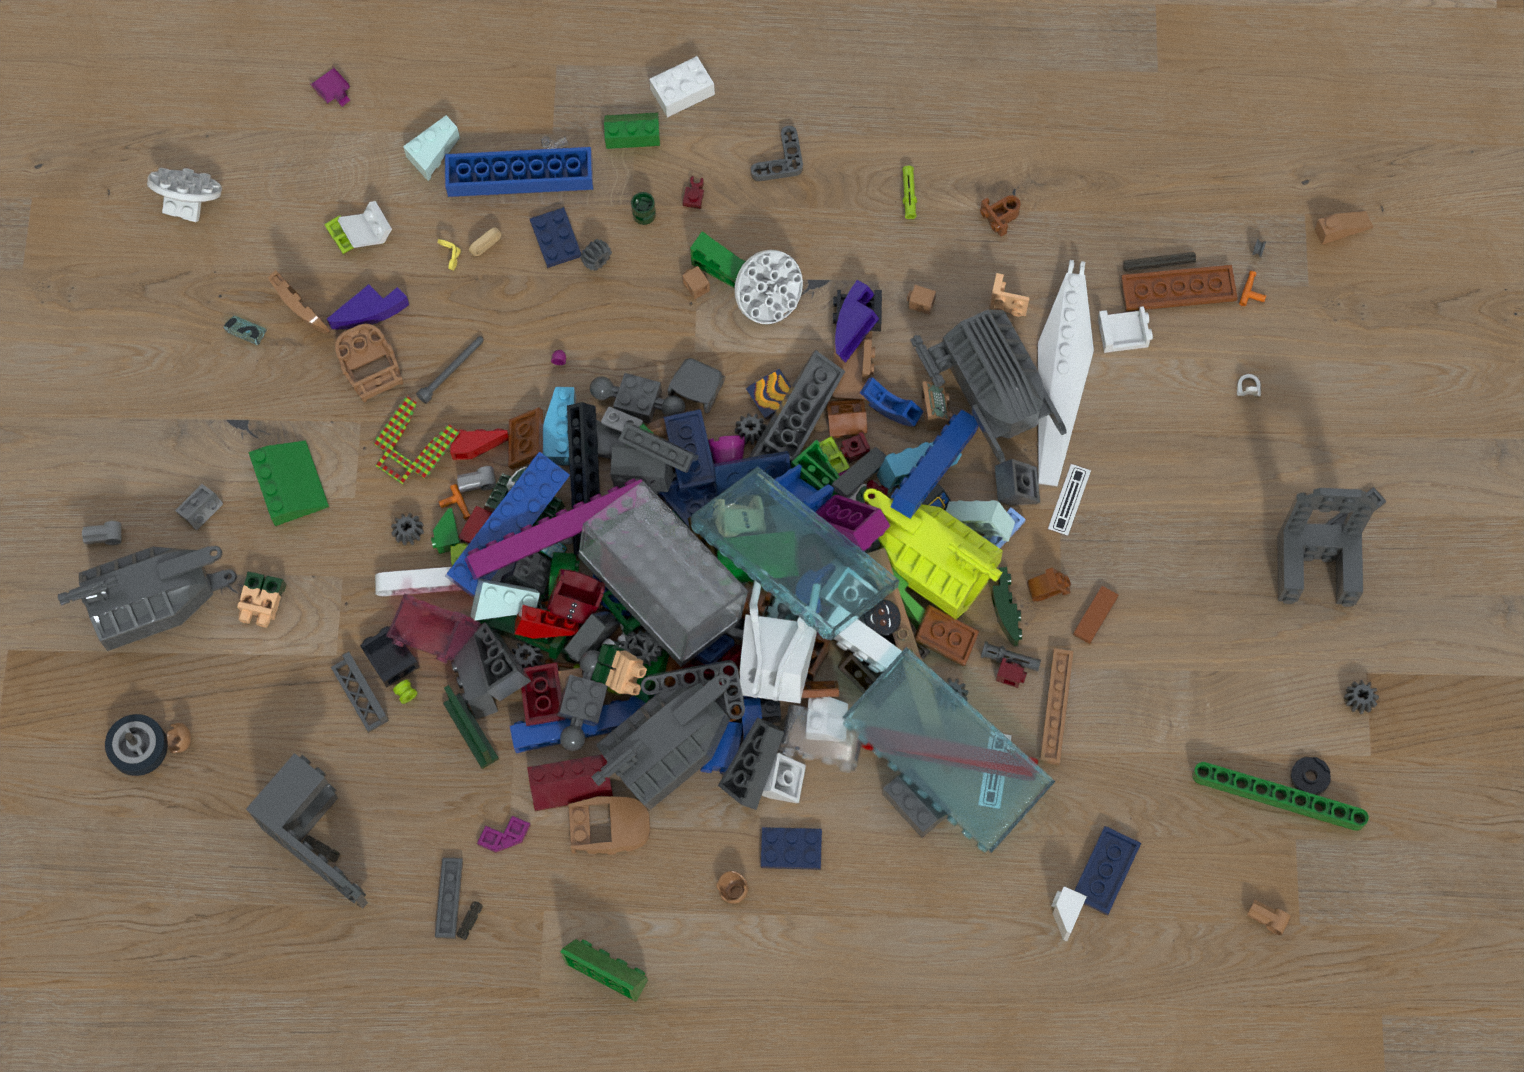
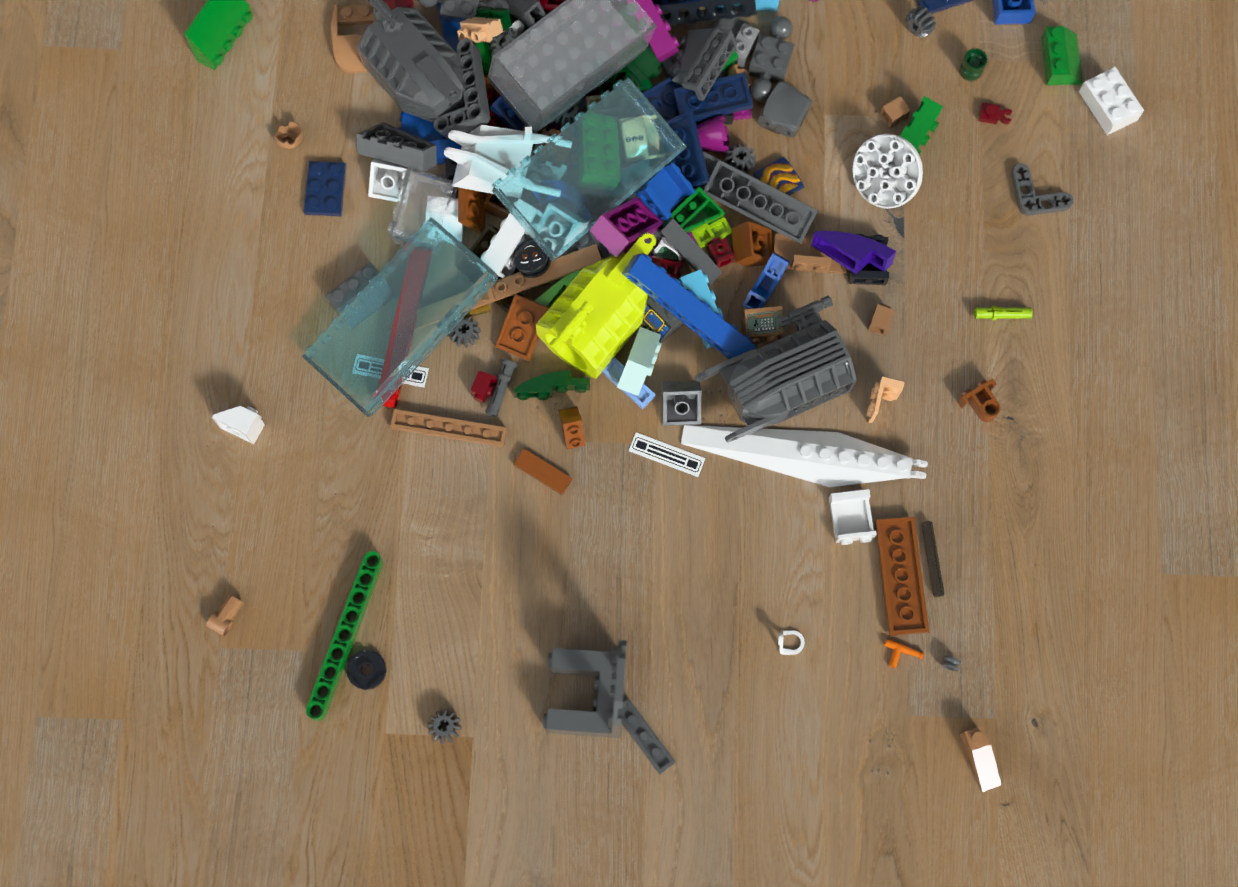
camera: 85 degrees right, 5 degrees up
(1107, 869) = (282, 465): dark blue plate -> none

